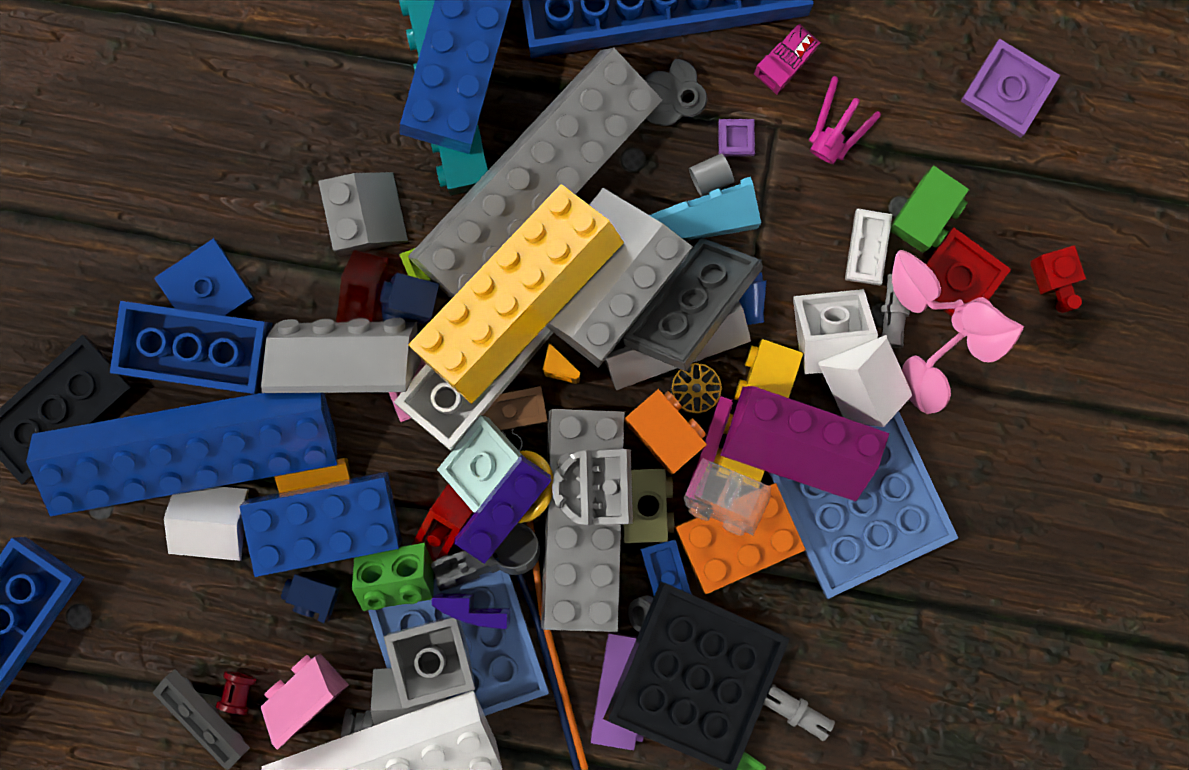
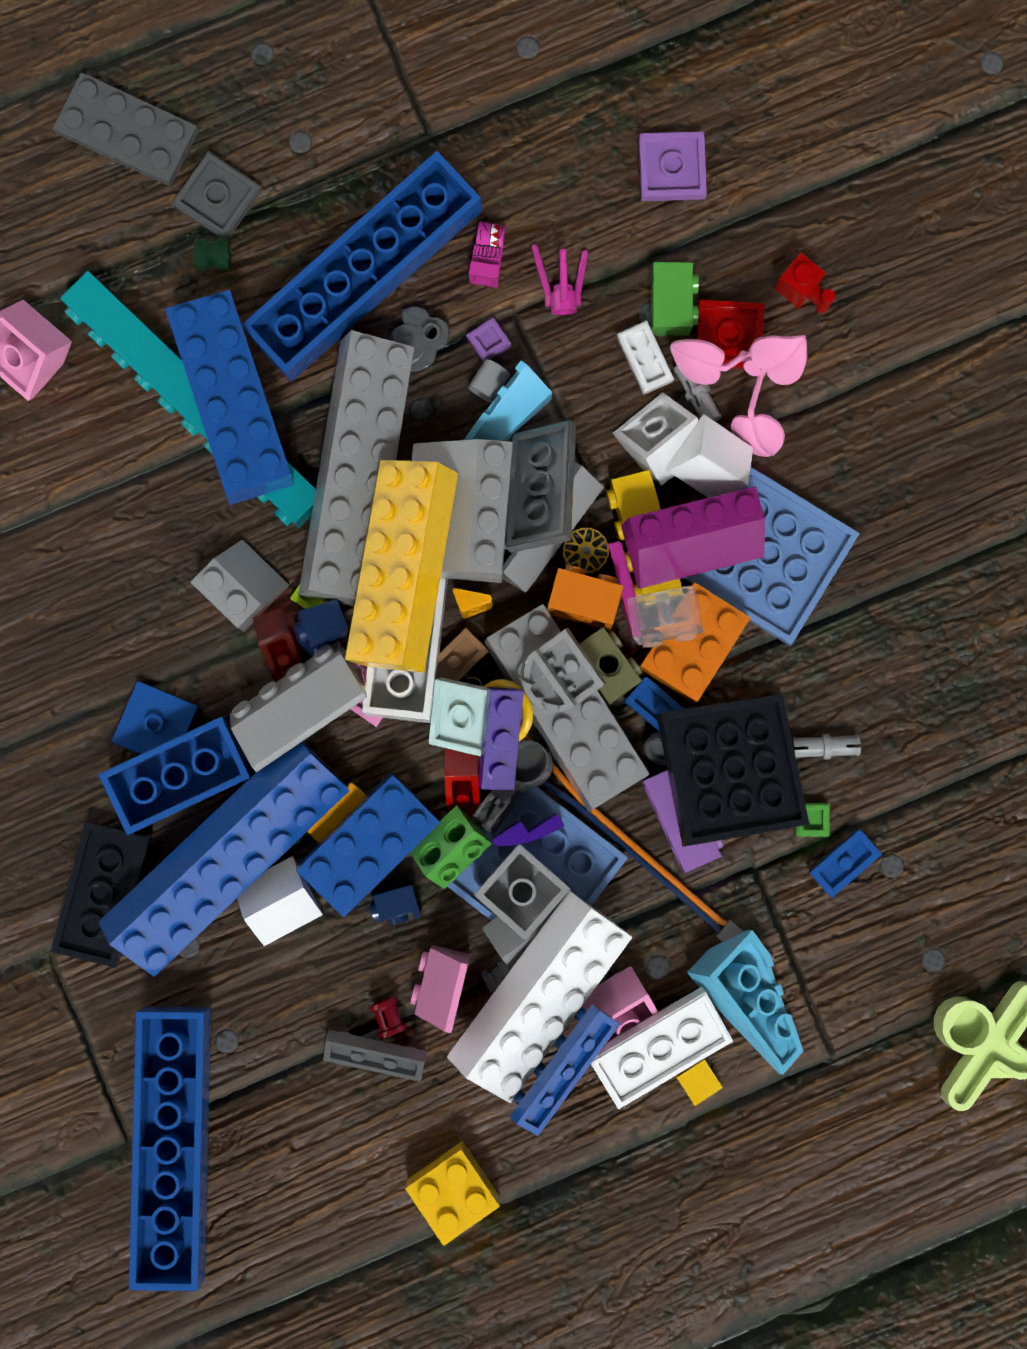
camera: 30 degrees left, 0 degrees up
(754, 301) = (585, 454): blue cone -> none

